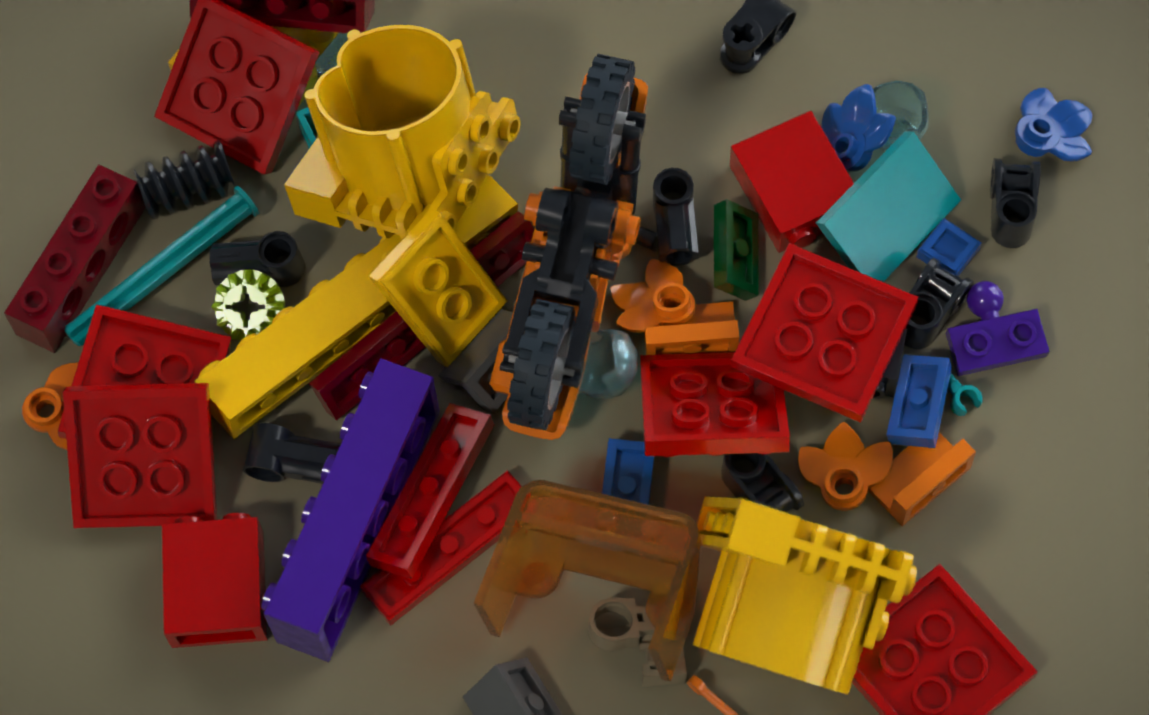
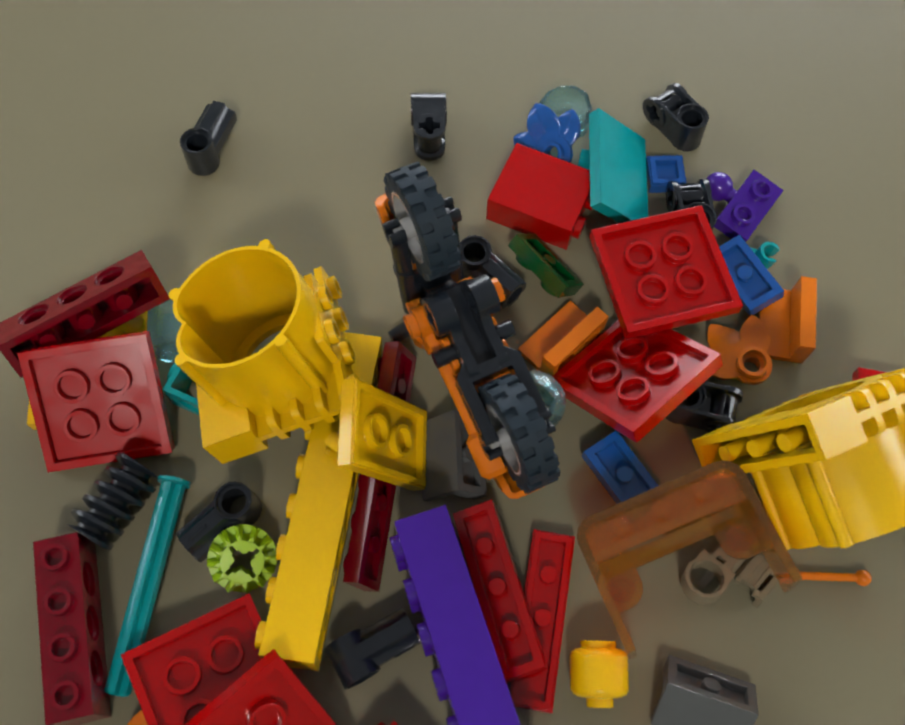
camera: 45 degrees left, 0 degrees up
(450, 618) = (599, 673): none -> yellow head
(652, 301) = (526, 325): orange plate -> none
(1053, 126) = (653, 62): blue plate -> none

